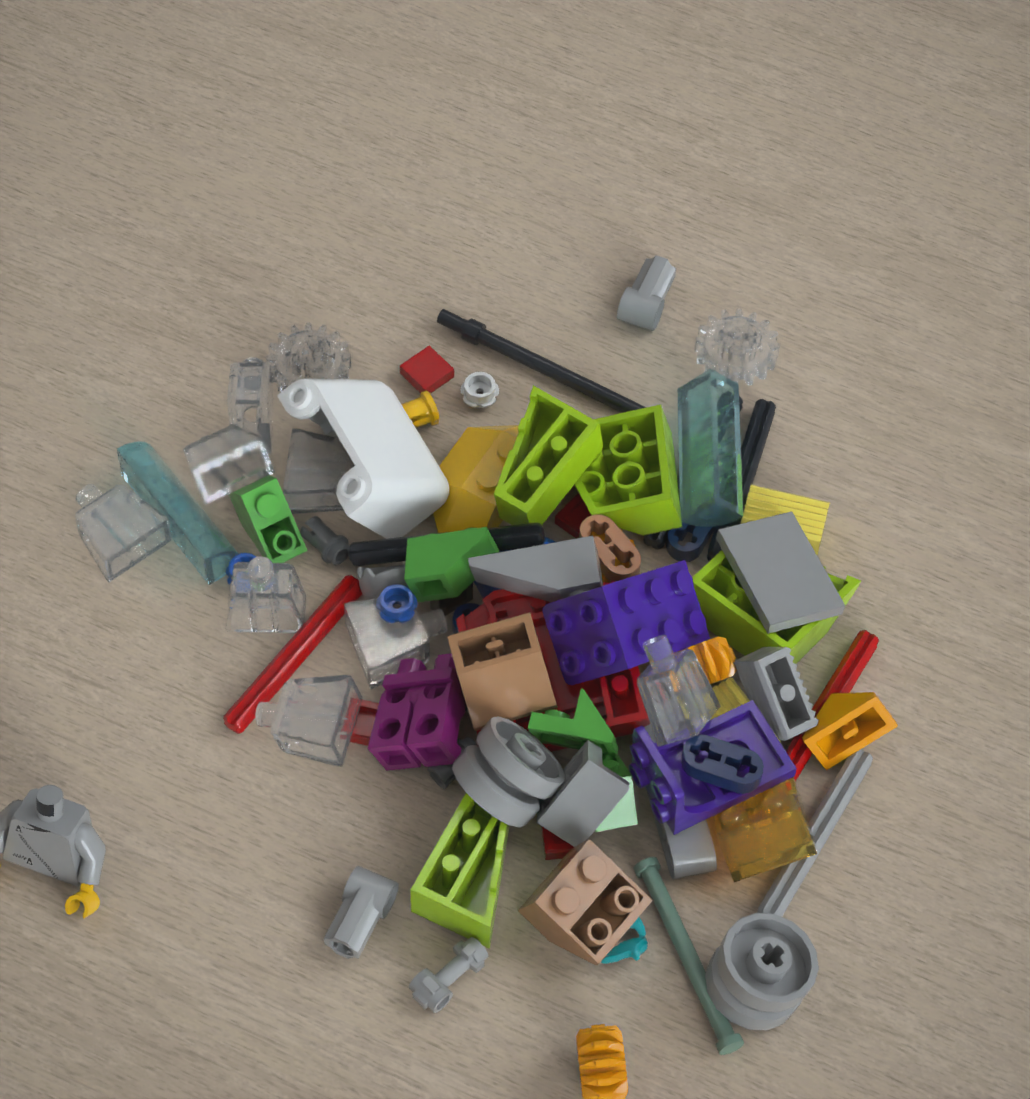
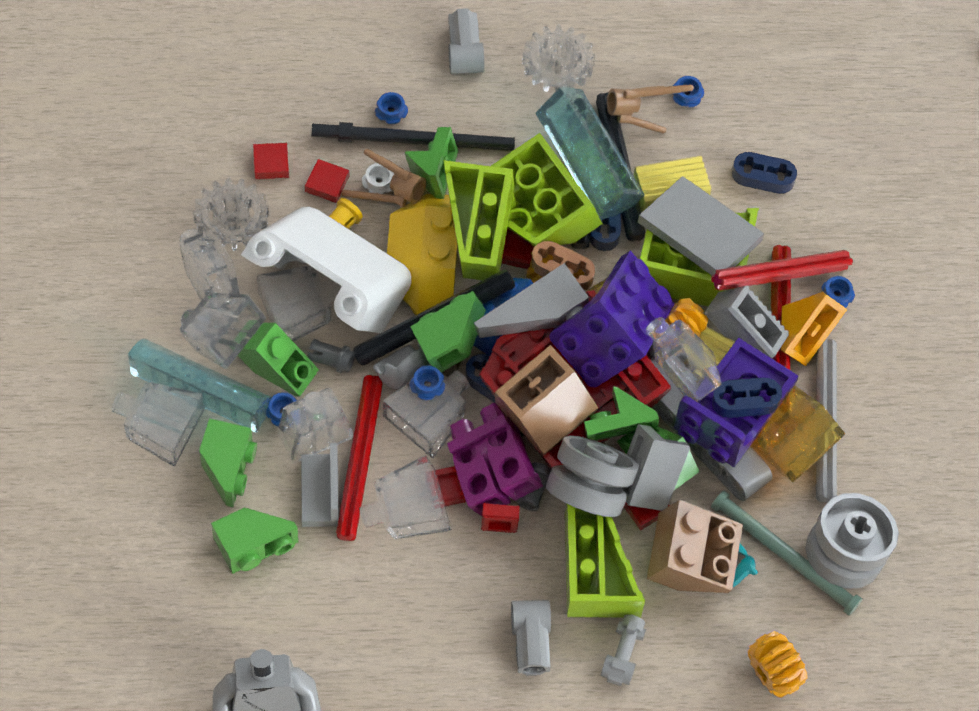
camera: 30 degrees left, 5 degrees up
(135, 681) = (252, 536): none -> bright green slope
(159, 592) = (224, 457): none -> bright green slope
(236, 665) = (320, 488): none -> light grey panel
(382, 329) = (271, 160): none -> red tile
(398, 777) = (500, 518): none -> red tile
(497, 401) = (405, 184): none -> medium nougat plant
(537, 320) = (391, 101): none -> blue plate
(559, 383) = (430, 163): none -> bright green slope
(780, 416) = (628, 101): none -> medium nougat plant
(847, 653) = (781, 270): none -> red axle
(861, 428) = (695, 95): none -> blue plate
(896, 551) = (764, 172): none -> dark blue beam
(910, 700) = (842, 286): none -> blue plate

